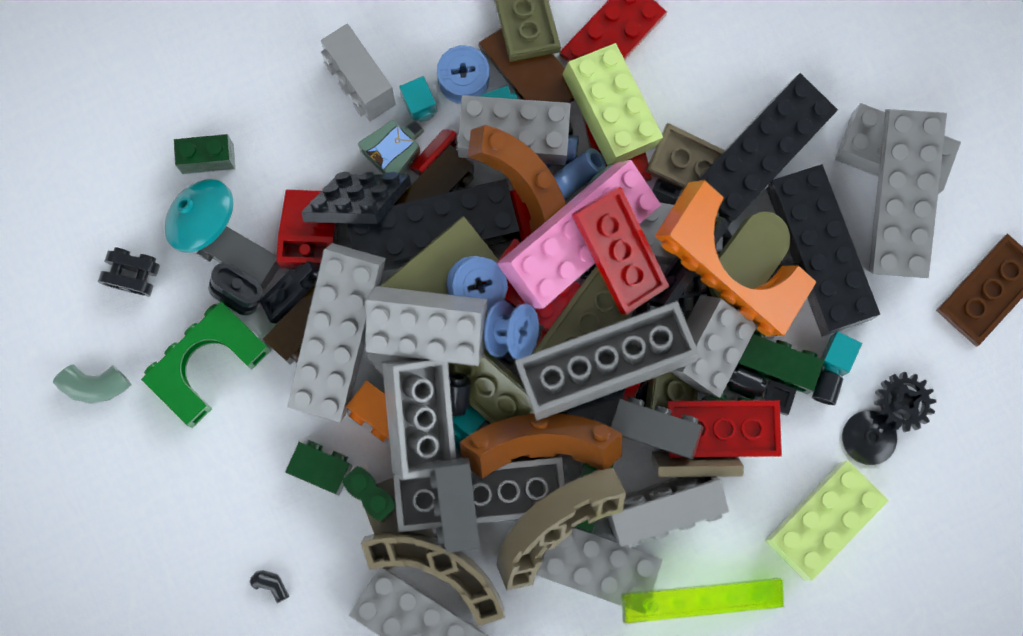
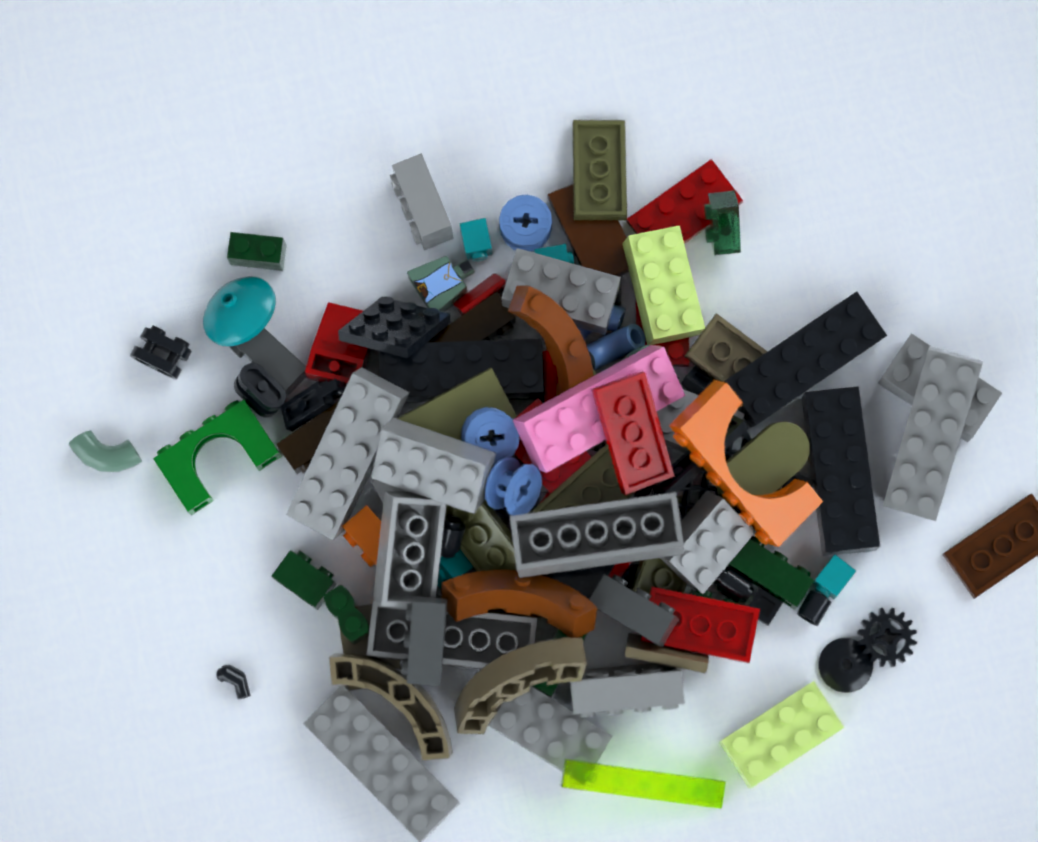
camera: 20 degrees right, 0 degrees up
(656, 34) = (724, 222): none -> clear green brick

